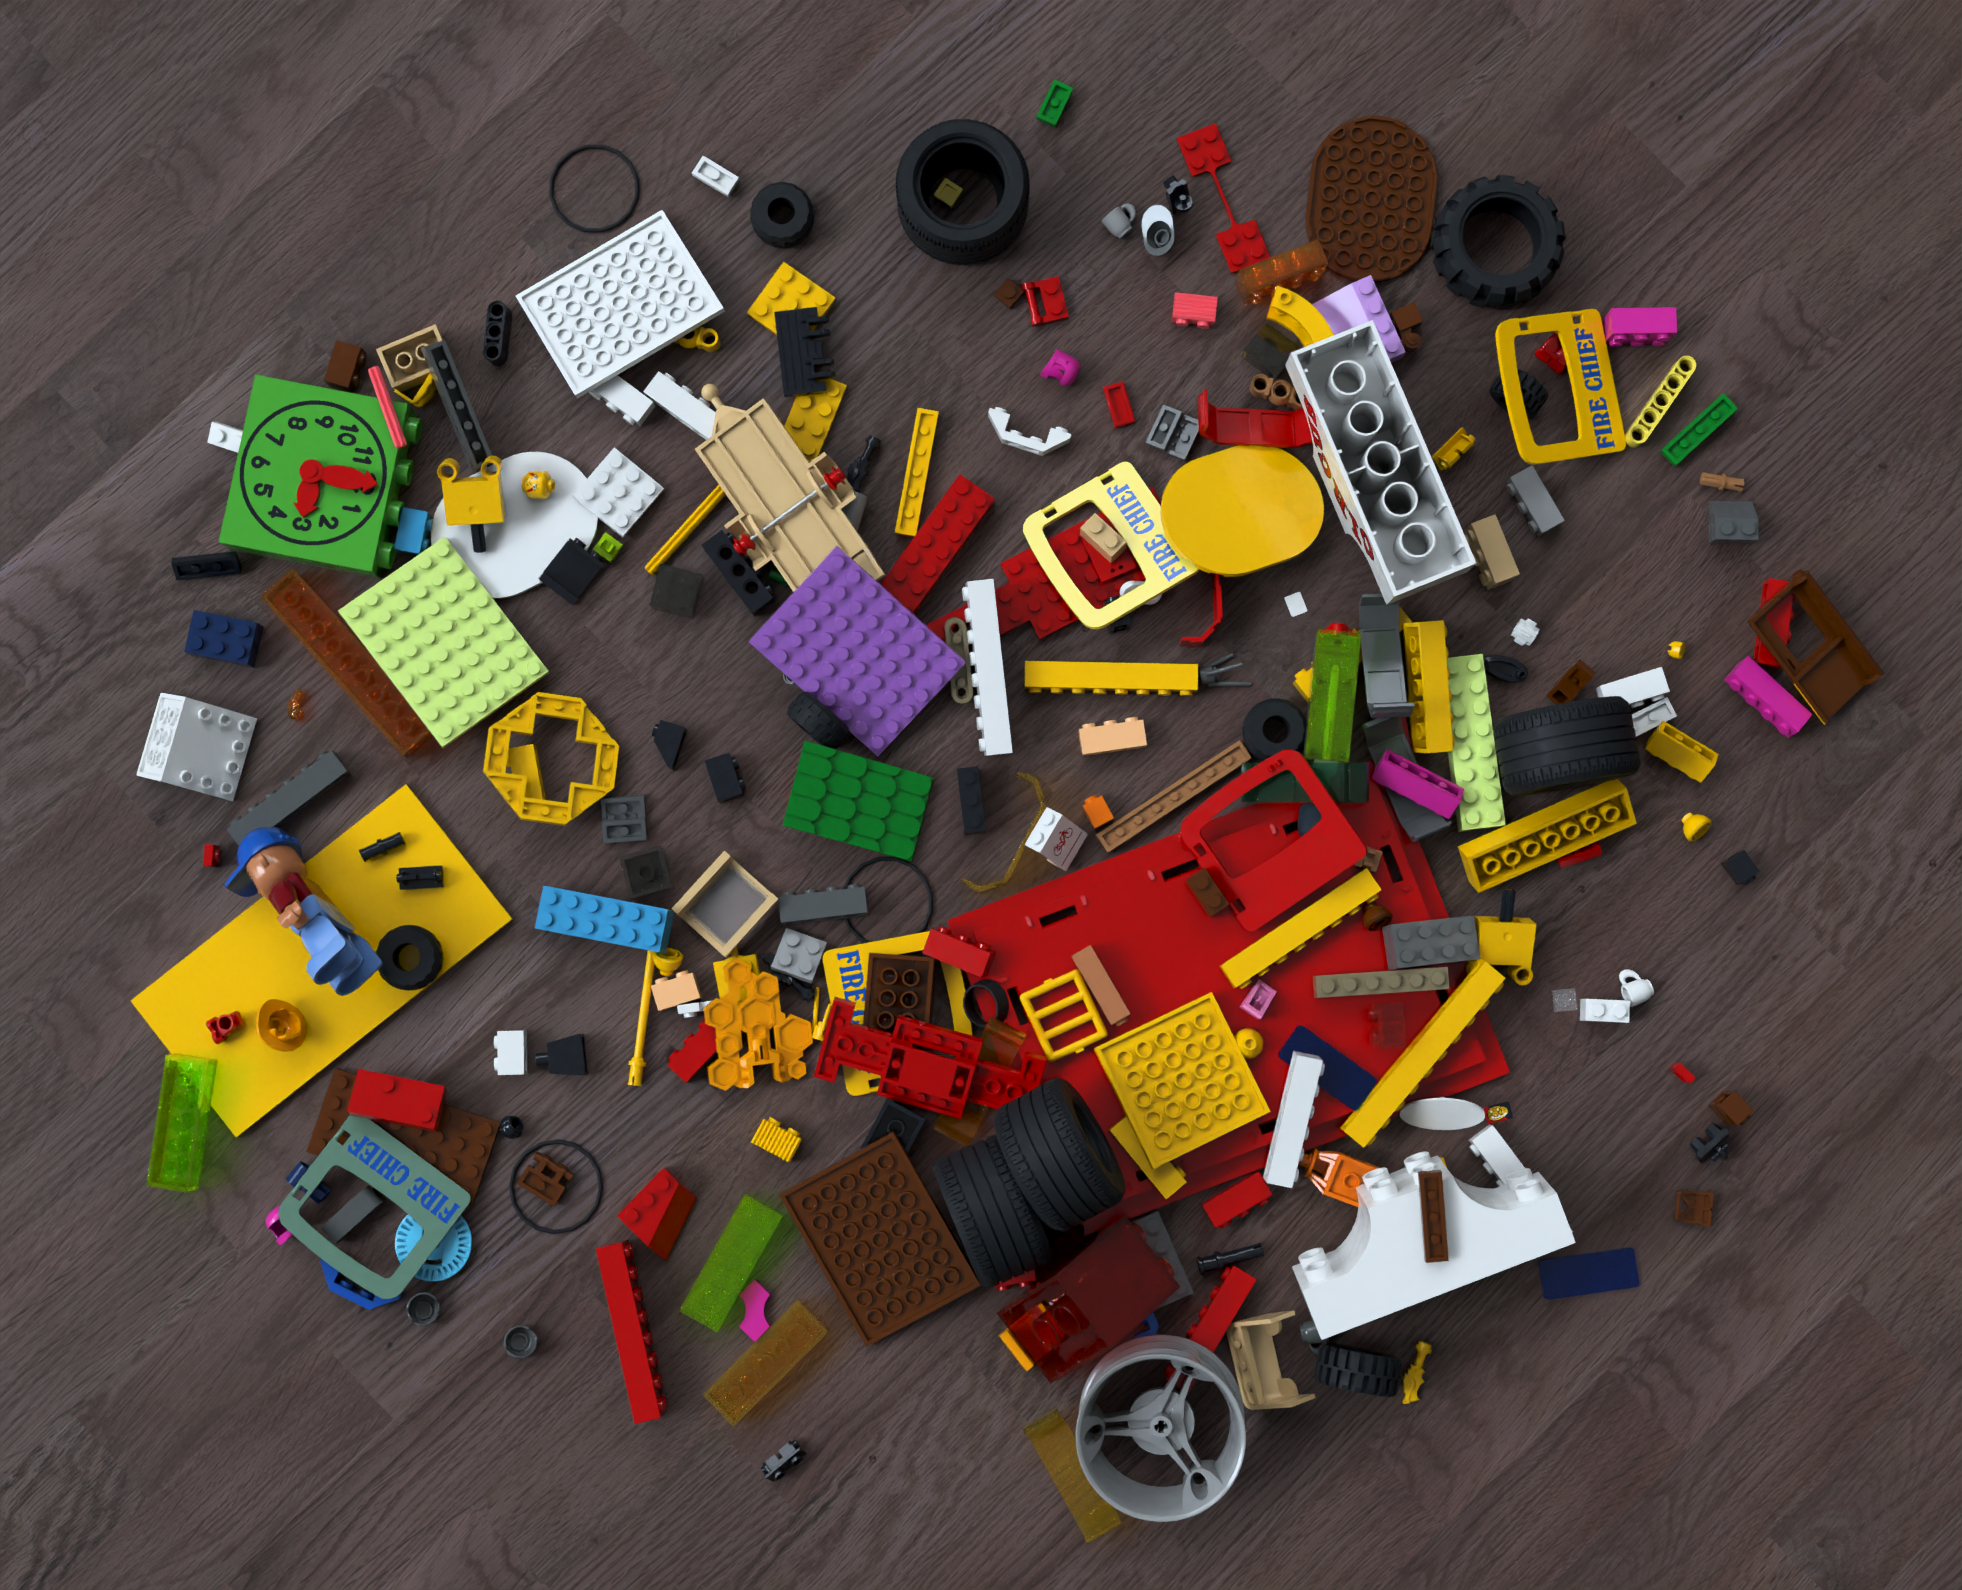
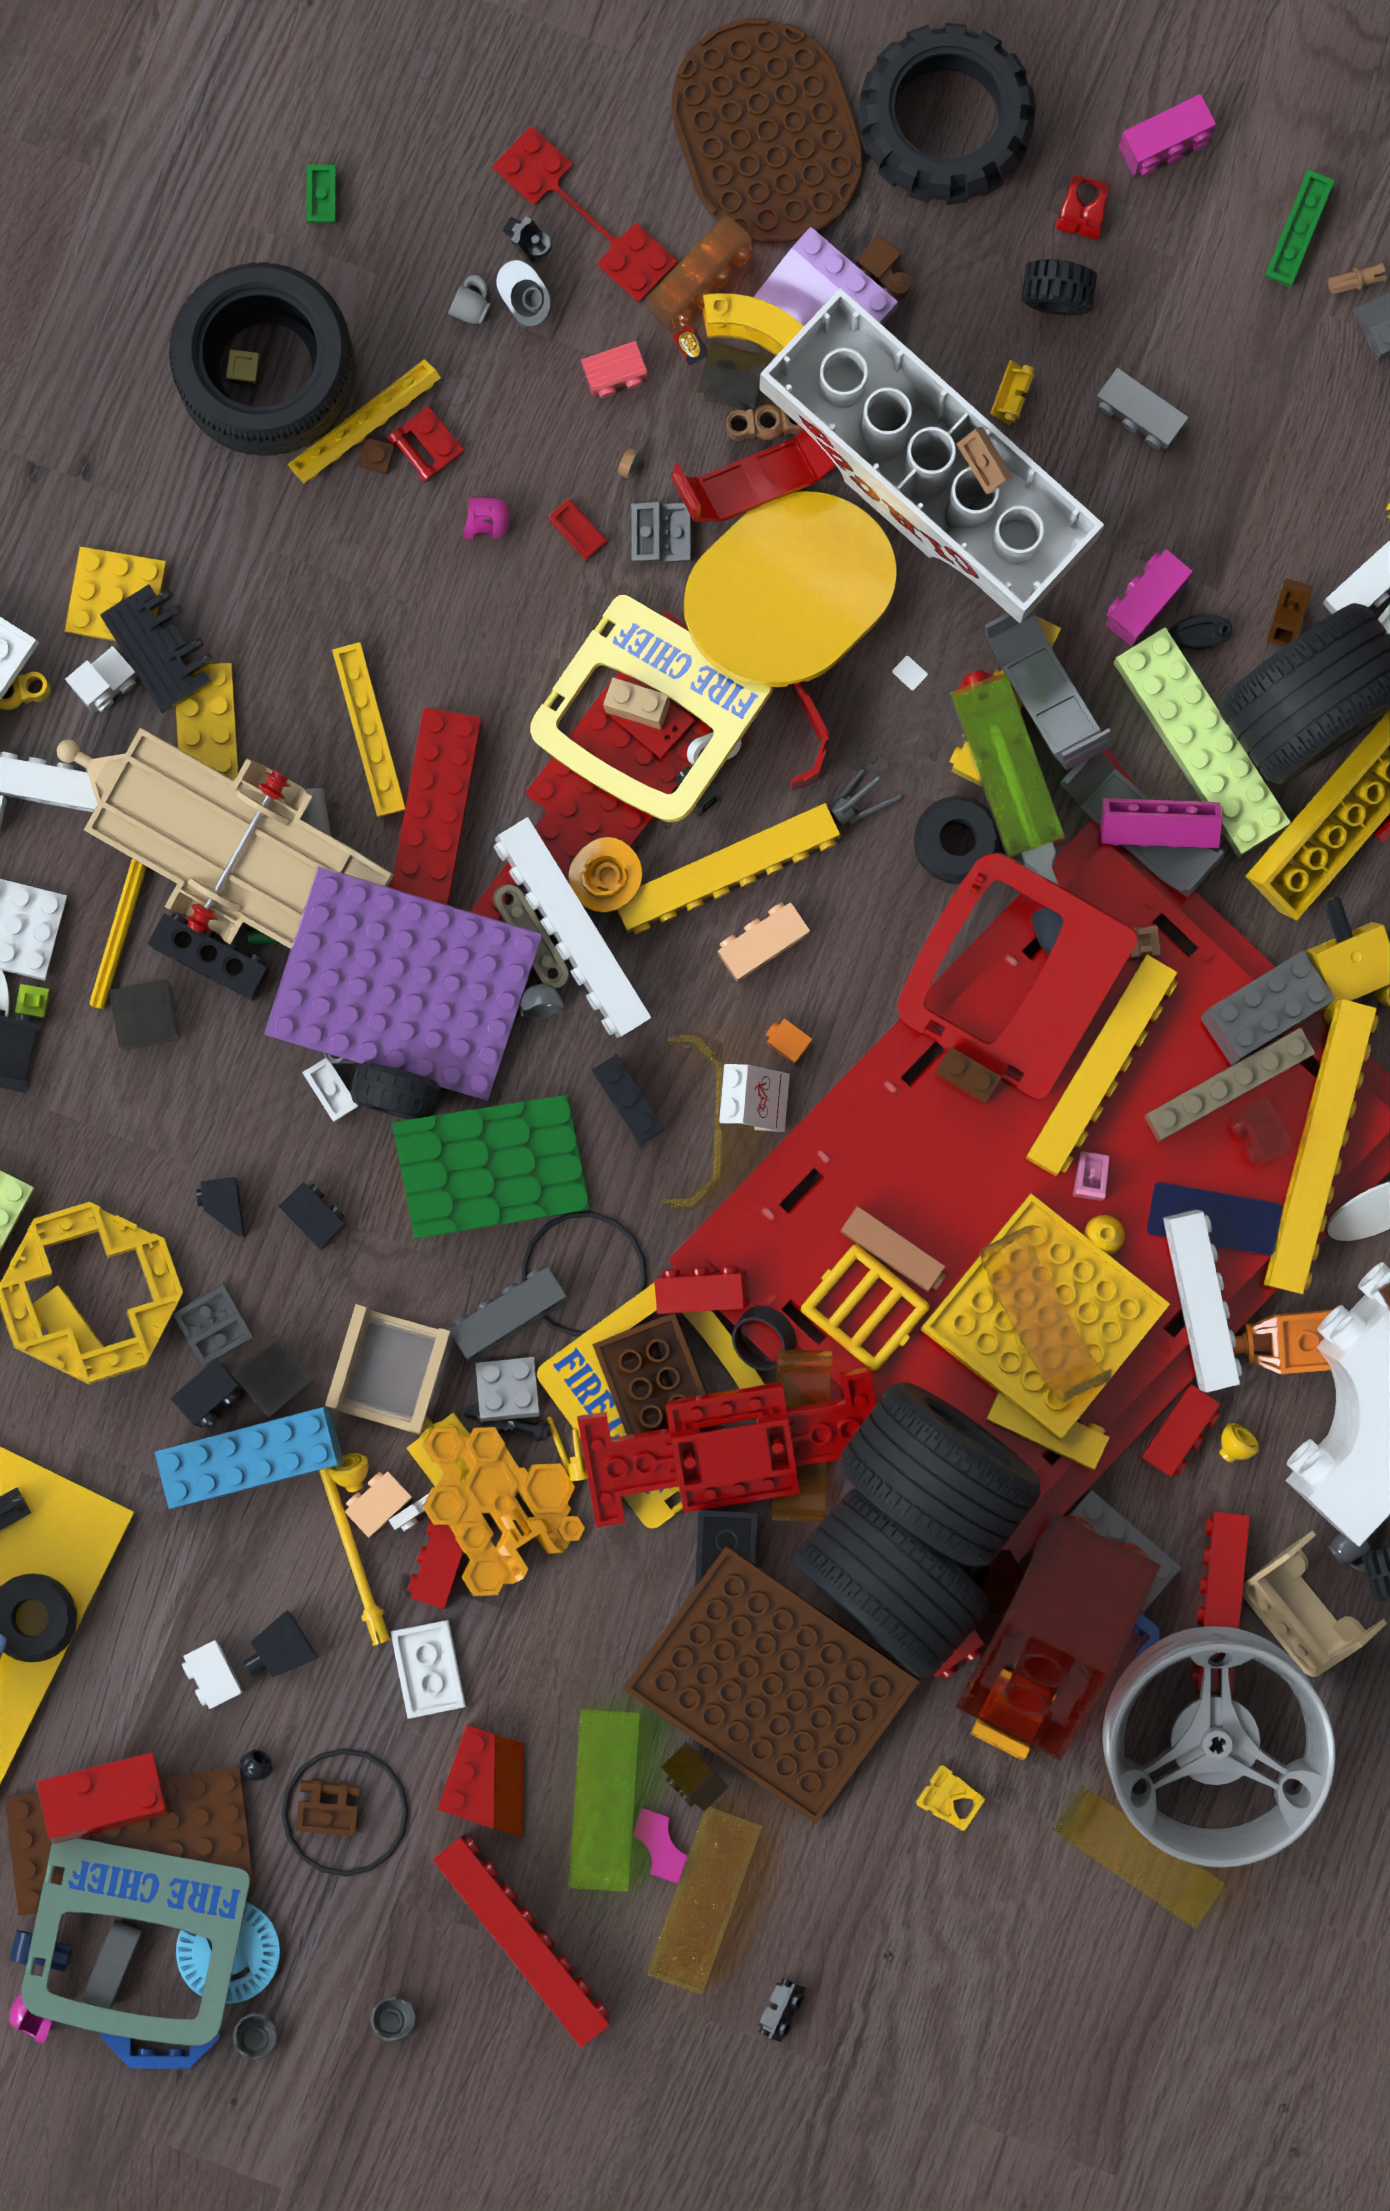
camera: 25 degrees left, 0 degrees up
(596, 864) = (208, 1394): none -> black brick
(657, 1117) = (428, 1669): none -> white tile
(755, 356) = (102, 680): none -> white brick
(776, 699) = (330, 1089): none -> white plate
(777, 1140) = (588, 1626): yellow brick -> none
(780, 195) = (37, 466): black tyre -> none
(799, 1277) = (695, 1777): none -> dark brown brick
(858, 469) = (295, 760): black piece -> none
(944, 707) = (540, 1002): none -> dark grey hair
(959, 1367) = (942, 1792): none -> yellow piece
(1011, 266) = (364, 421): none -> yellow plate
(1027, 642) = (605, 874): none -> light orange hat
(1056, 438) = (520, 609): white slope -> none
(1173, 796) = (872, 978): medium nougat plate -> none
(1174, 376) = (628, 463): none -> medium nougat tile
(1178, 1080) = (1040, 1317): none -> clear yellow windscreen
(1219, 1260) = (1194, 1515): black pin -> none
(1252, 318) = (690, 345): none -> sticker
(1271, 1226) = (1237, 1443): none -> yellow brick
(1343, 781) = (1067, 862): clear green windscreen -> none
(1376, 917) = (1187, 1008): reddish brown brick -> none
(1415, 481) = (984, 460): none -> medium nougat plate
(1428, 686) = (1118, 698): yellow brick -> none
(1480, 628) = (1147, 596): none -> dark pink brick
(1491, 552) = (1117, 498): tan brick -> none
(1525, 632) = (1205, 575): white gear -> none
(1591, 382) = (1141, 232): yellow door -> none
(1664, 392) = (1236, 202): light yellow beam -> none

